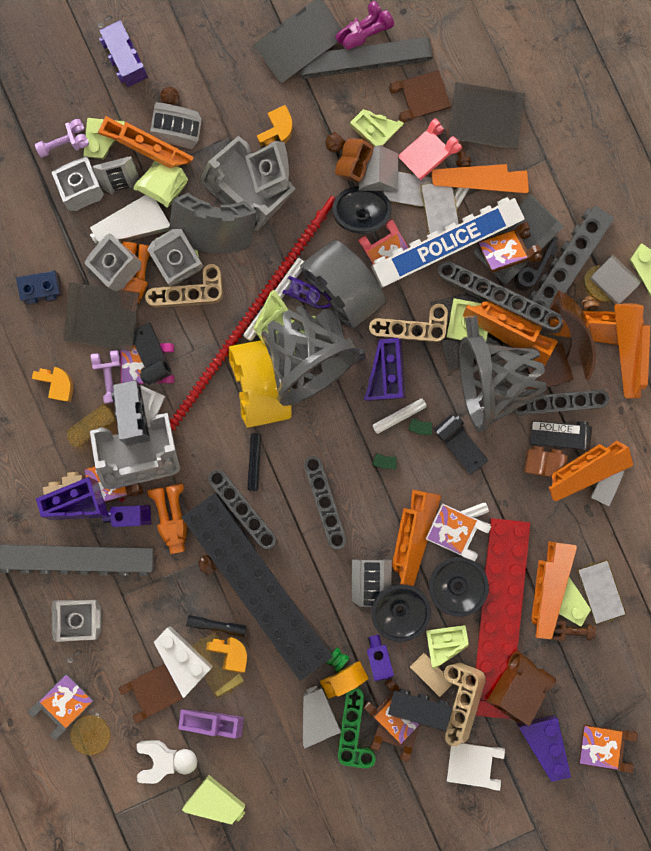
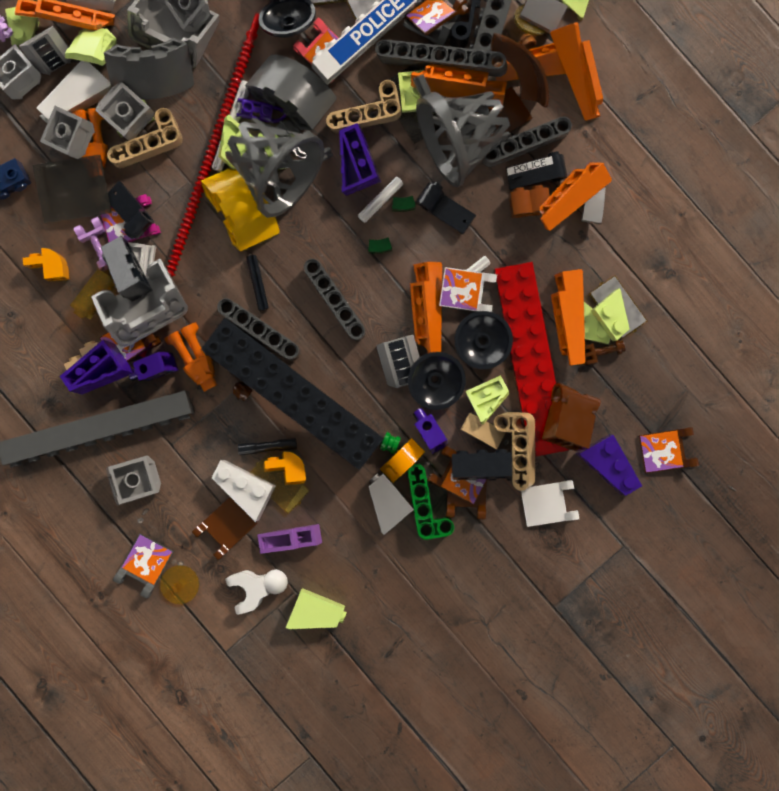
camera: 20 degrees left, 0 degrees up
(592, 599) = (612, 315): none -> yellowish green wing

